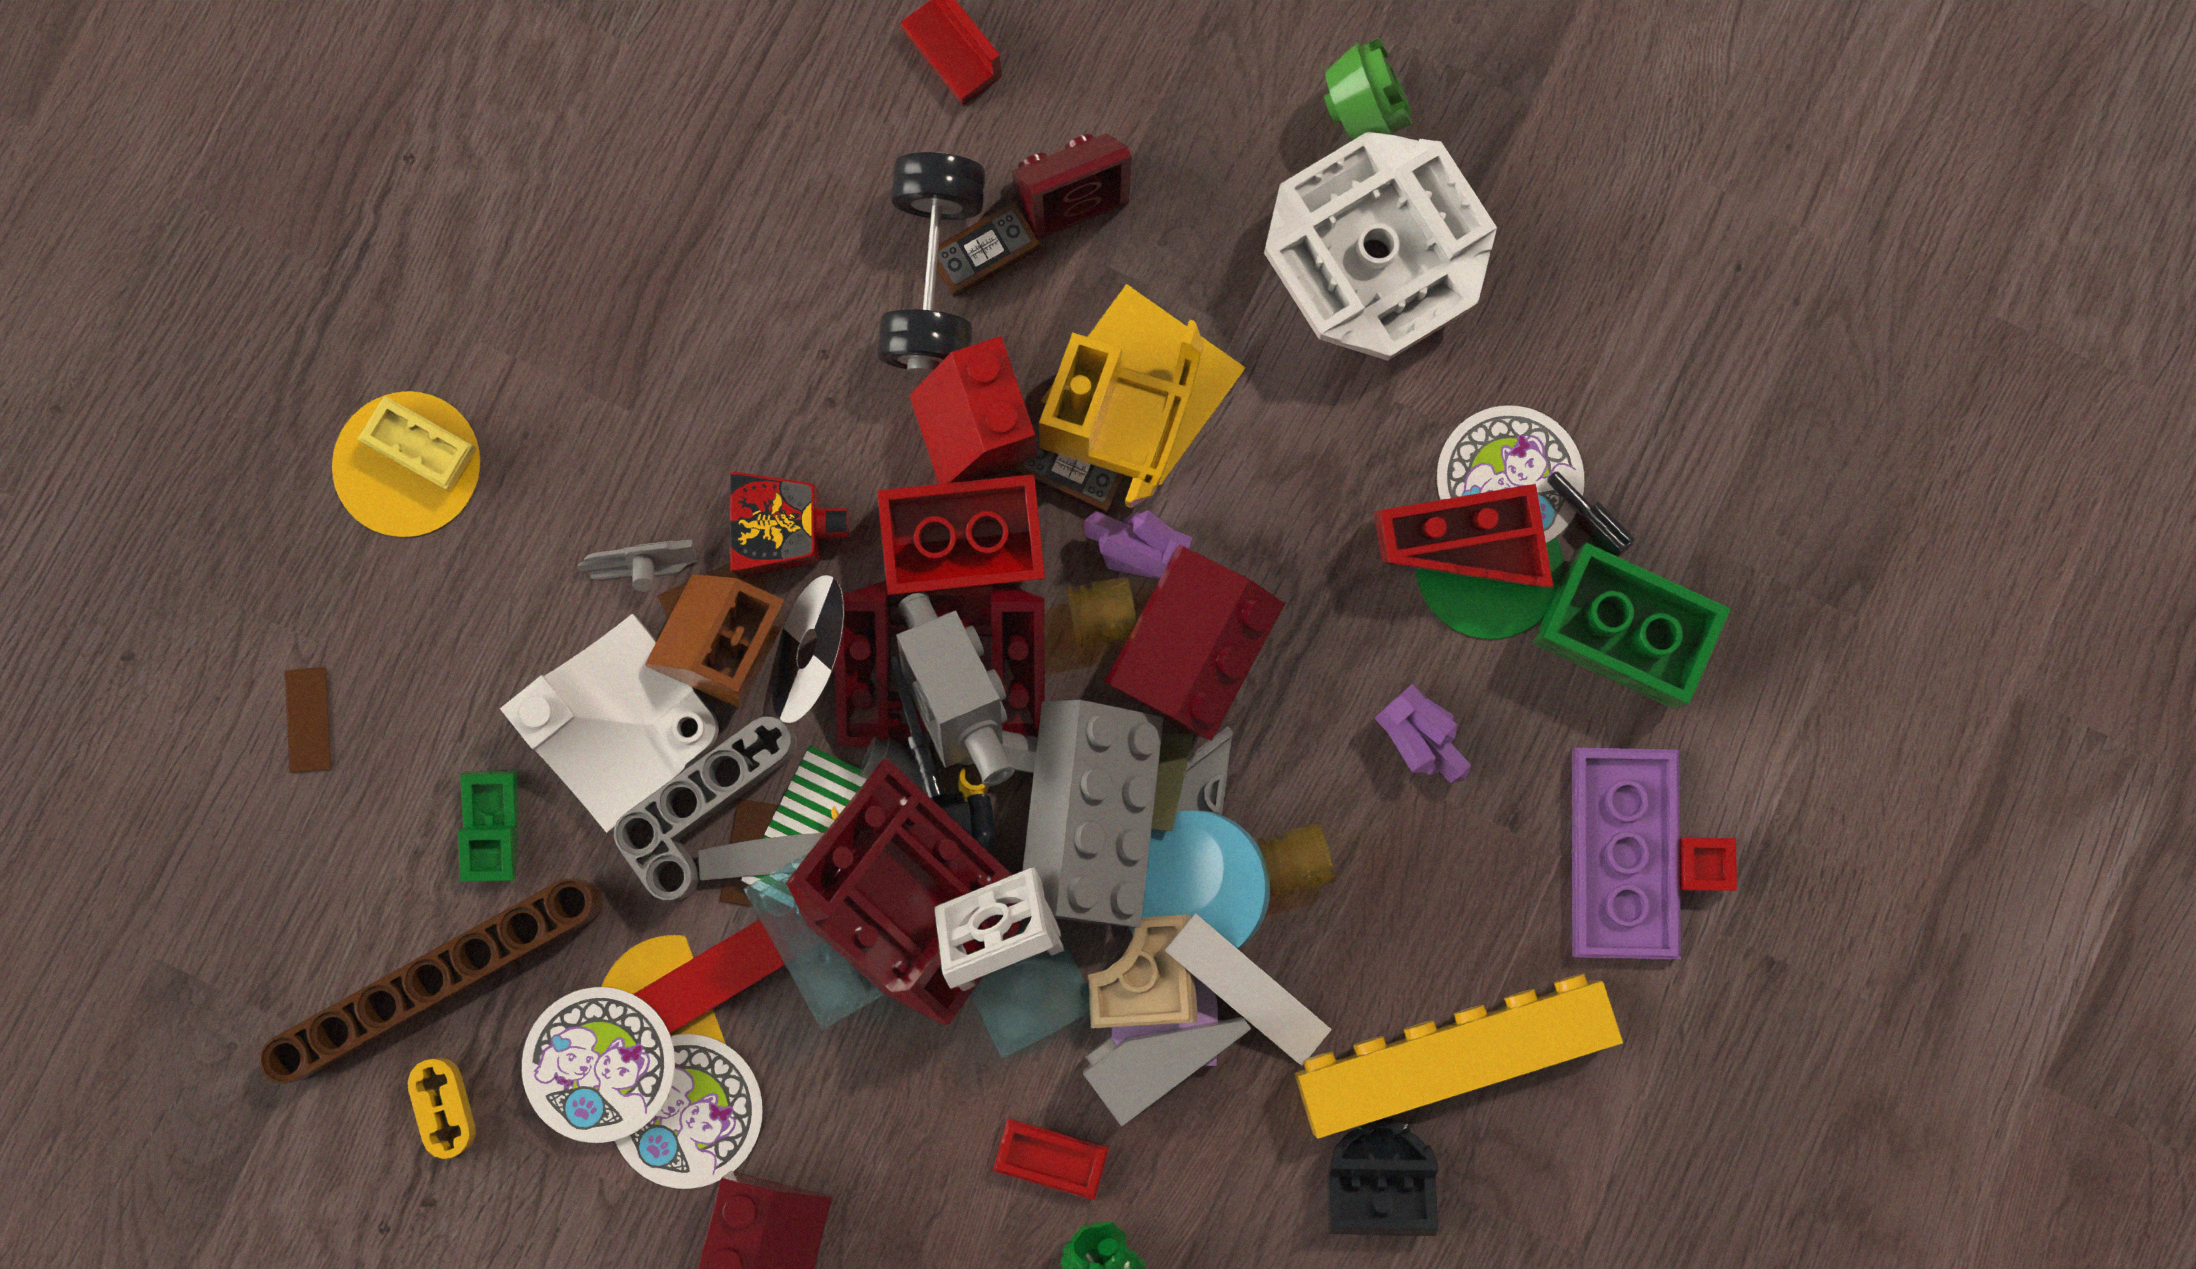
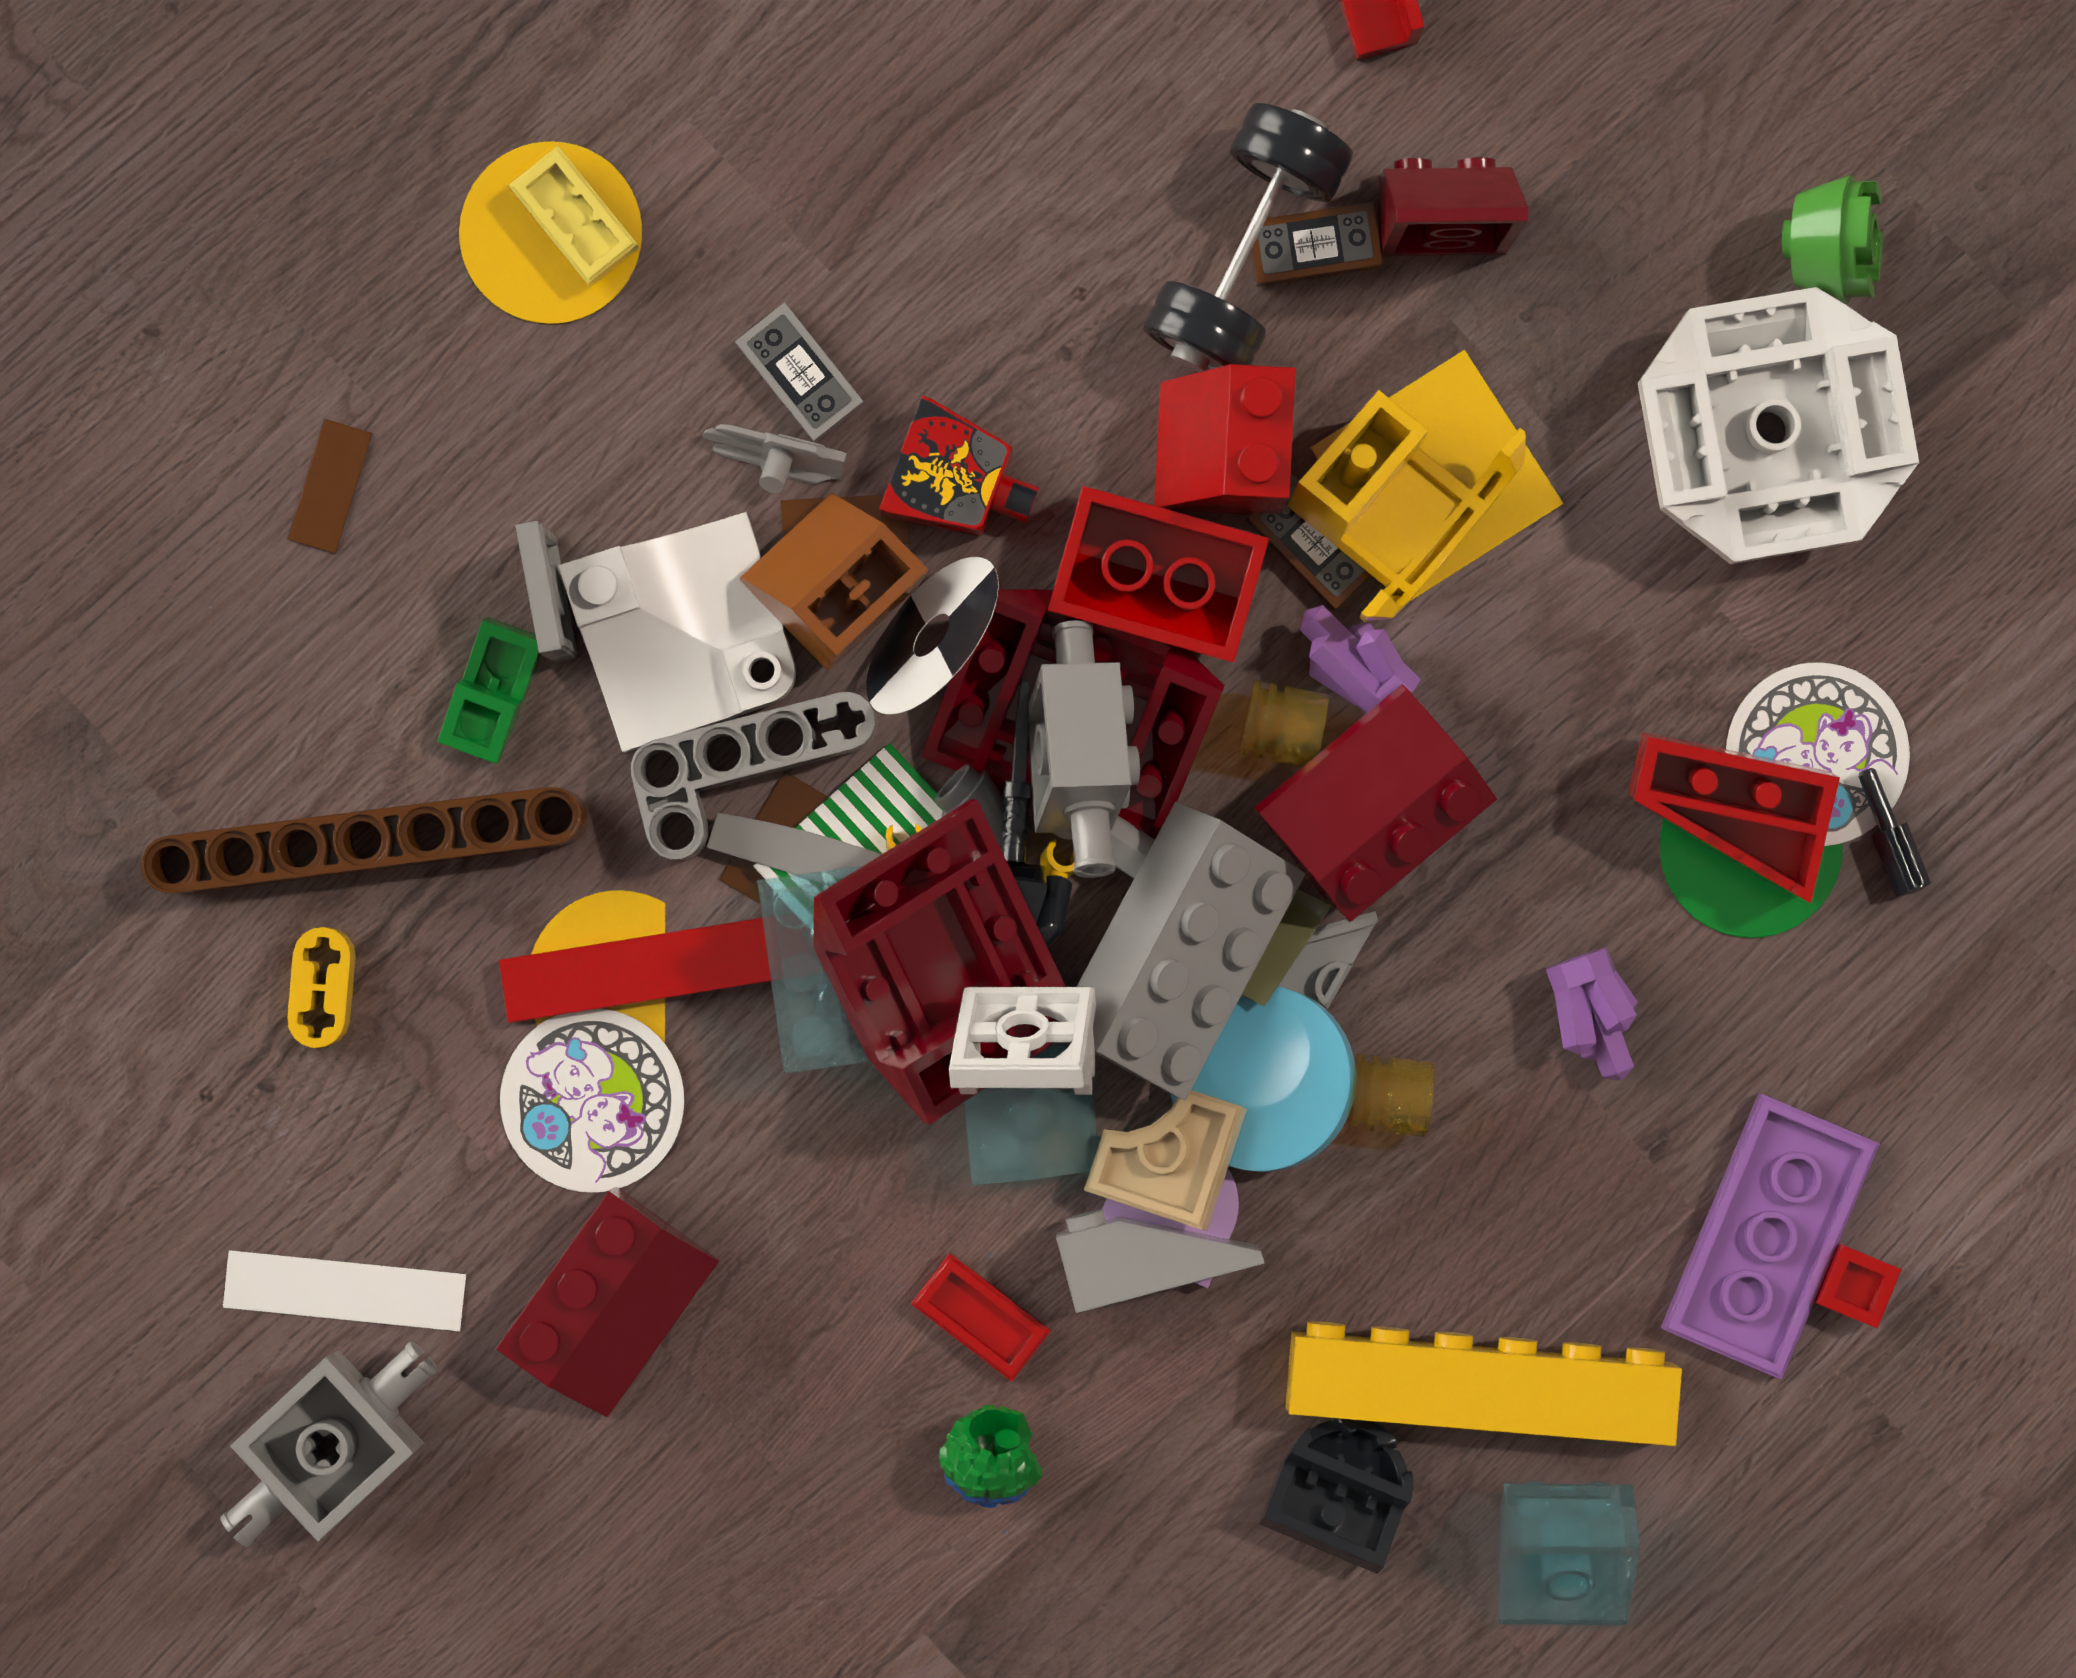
camera: 25 degrees right, 5 degrees up
(500, 737) = (546, 592): none -> light grey tile
(598, 1065) = (515, 1009): sticker -> none
(634, 494) = (799, 372): none -> tile
(1248, 989) = (1278, 1218): white sticker -> none
(1574, 1160) = (1566, 1553): none -> clear light blue slope
(1631, 626) = (1883, 982): green brick -> none

